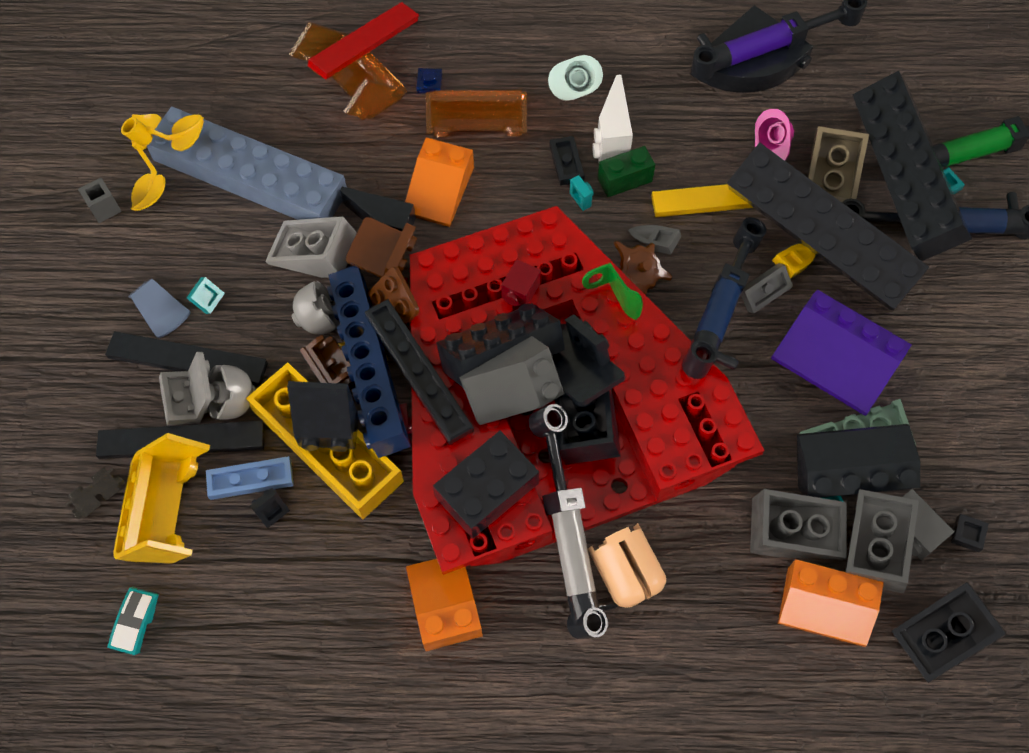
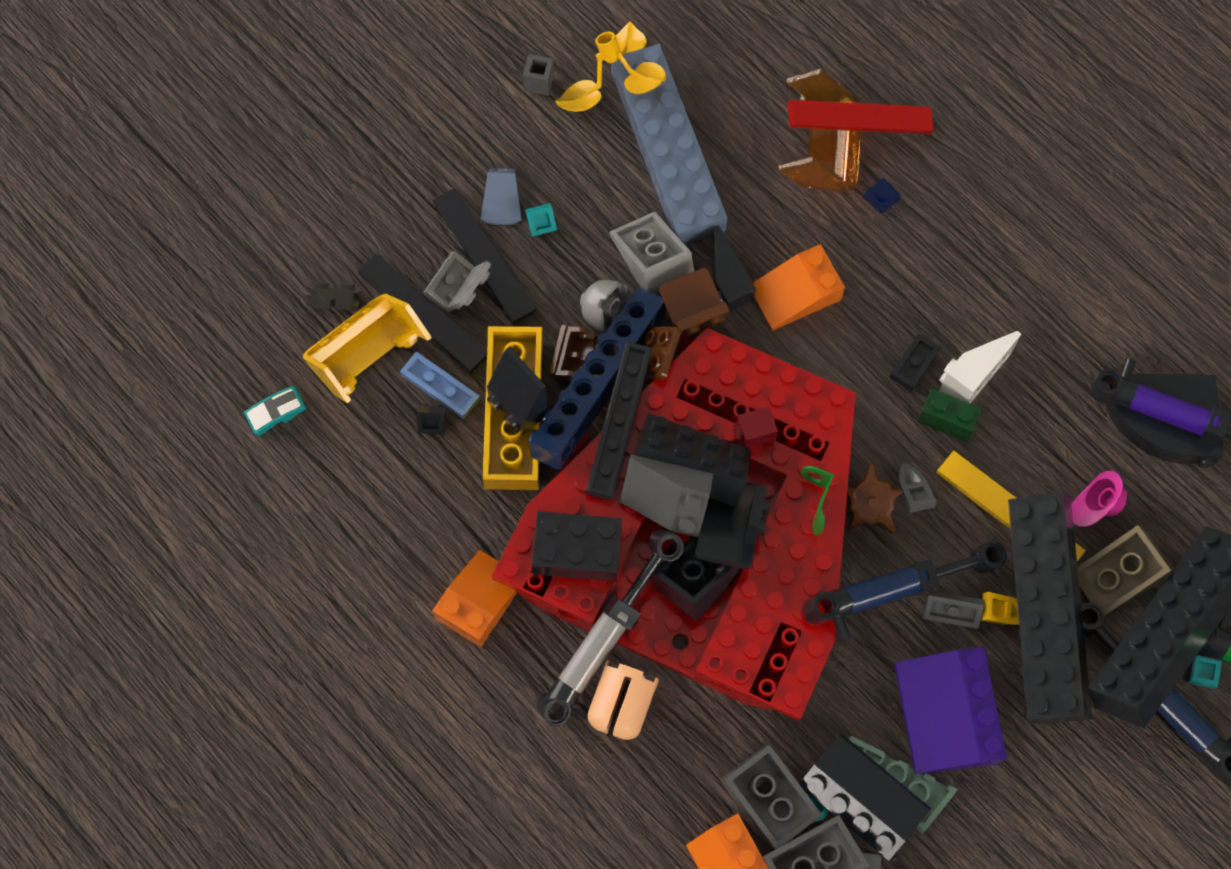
camera: 45 degrees right, 5 degrees up
(230, 392) = (485, 310): light grey cylinder -> none
(476, 111) = (888, 253): clear orange windscreen -> none
(575, 77) = (993, 301): light aqua piece -> none
(581, 192) = (897, 399): teal plate -> none

